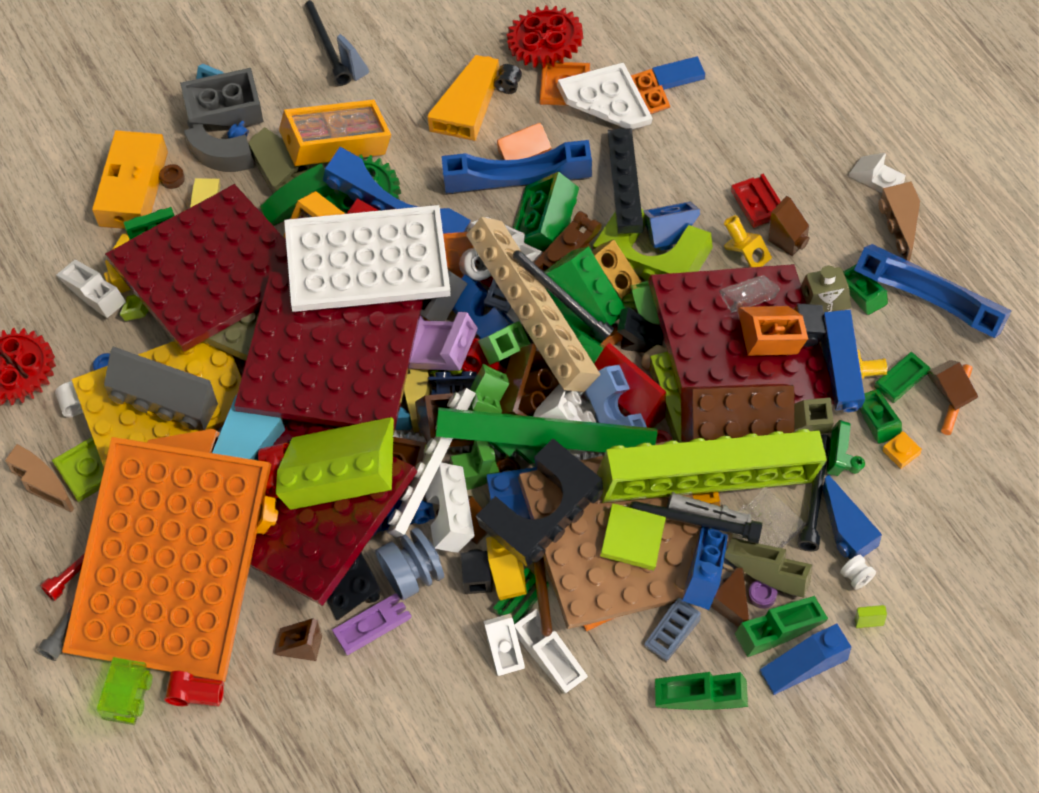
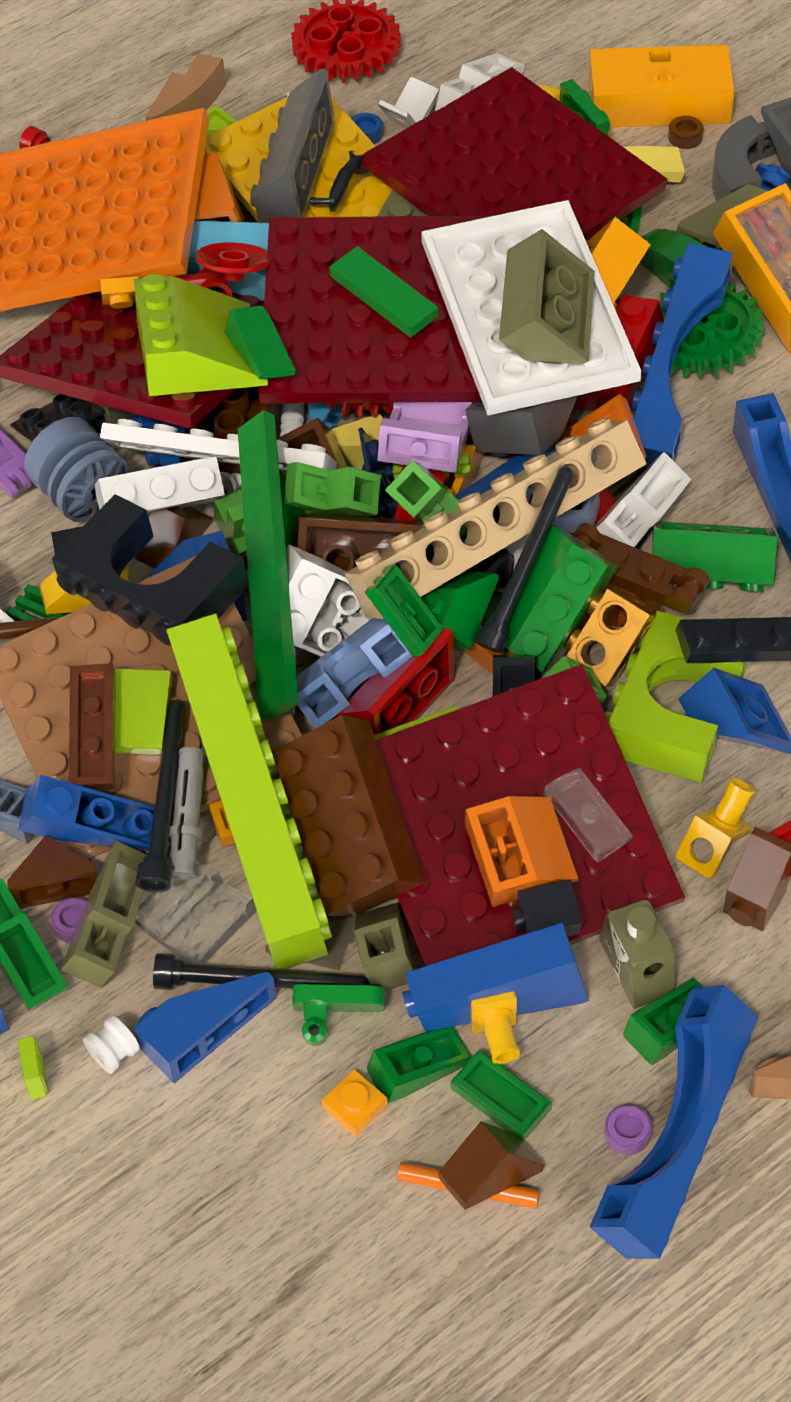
camera: 80 degrees right, 5 degrees down
(96, 330) = (413, 104): none -> white bracket
(191, 364) = (341, 183): none -> black piece
(266, 432) = (233, 259): none -> red dish
(330, 340) = (383, 291): none -> green tile
(364, 416) = (258, 342): none -> green slope
(380, 241) = (546, 302): none -> olive slope
(599, 358) = (401, 614): none -> green tile
(651, 550) = (92, 726): none -> copper plate
(927, 319) = (628, 1129): none -> medium lavender tile

